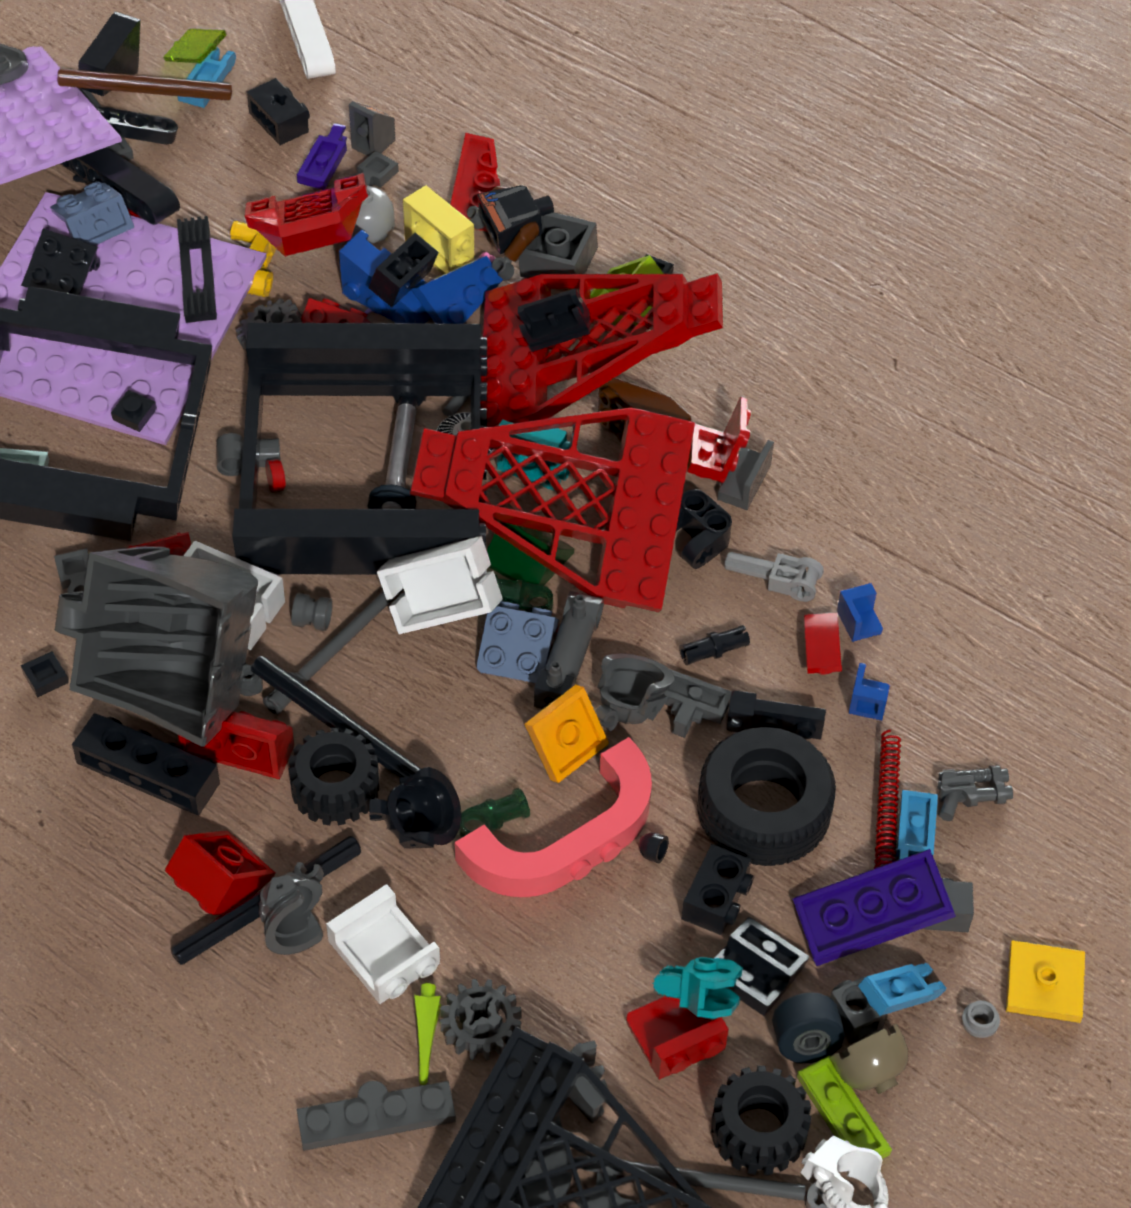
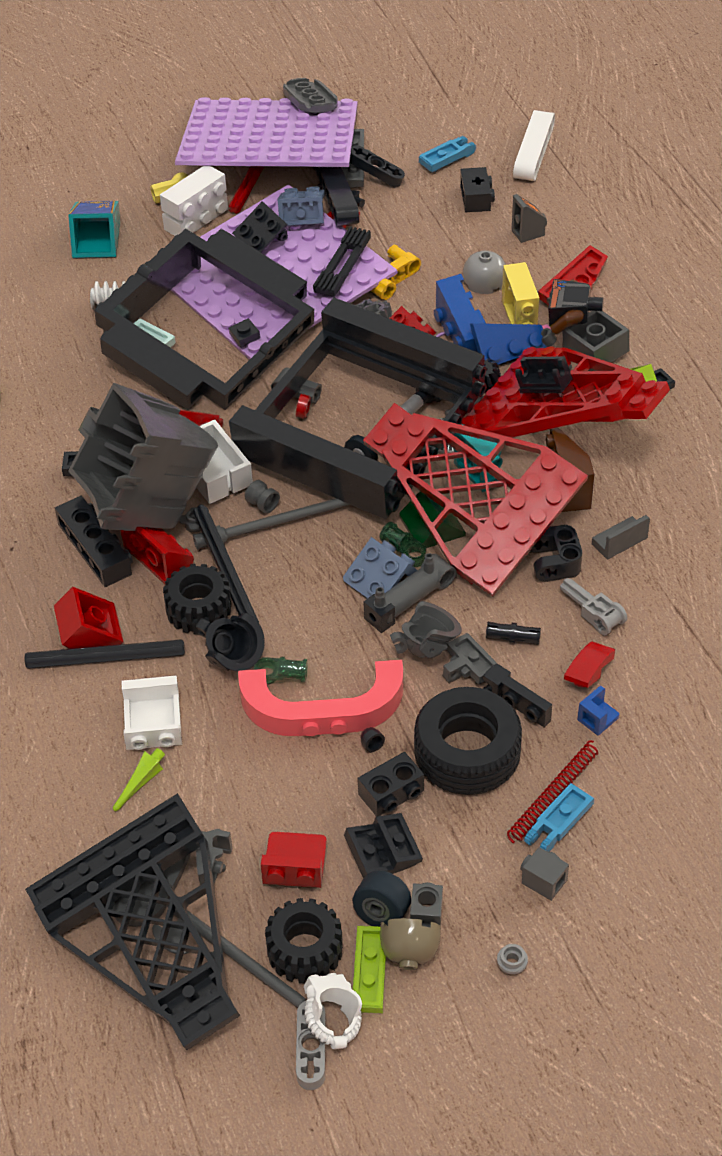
camera: 35 degrees right, 5 degrees down
(114, 49) = (389, 118): black slope -> none
(144, 84) = (396, 141): reddish brown axle -> none
(194, 46) = (452, 132): clear neon green piece -> none
(287, 910) = (107, 664): dark grey helmet -> none
(309, 219) = (433, 258): red piece -> none
(323, 159) = (484, 228): dark purple plate -> none
(376, 1114) = (69, 811): dark grey hinge -> none
(377, 169) = (511, 248): dark grey plate -> none
(403, 270) = (468, 307): black brick -> none
(440, 585) = (349, 511): white piece -> none
(478, 1004) = (176, 779): dark grey gear -> none
(566, 733) = (362, 638): light orange tile -> none
(702, 986) = (326, 835): teal hinge -> none
(716, 452) = (606, 506): red bracket -> none
(857, 612) = (633, 657): blue panel -> none
(873, 907) = (488, 847): dark purple tile -> none
(900, 988) = (464, 906): dark azure hinge -> none
(960, 787) = (618, 802): dark grey piece -> none
(1045, 981) = (580, 959): yellow plate -> none

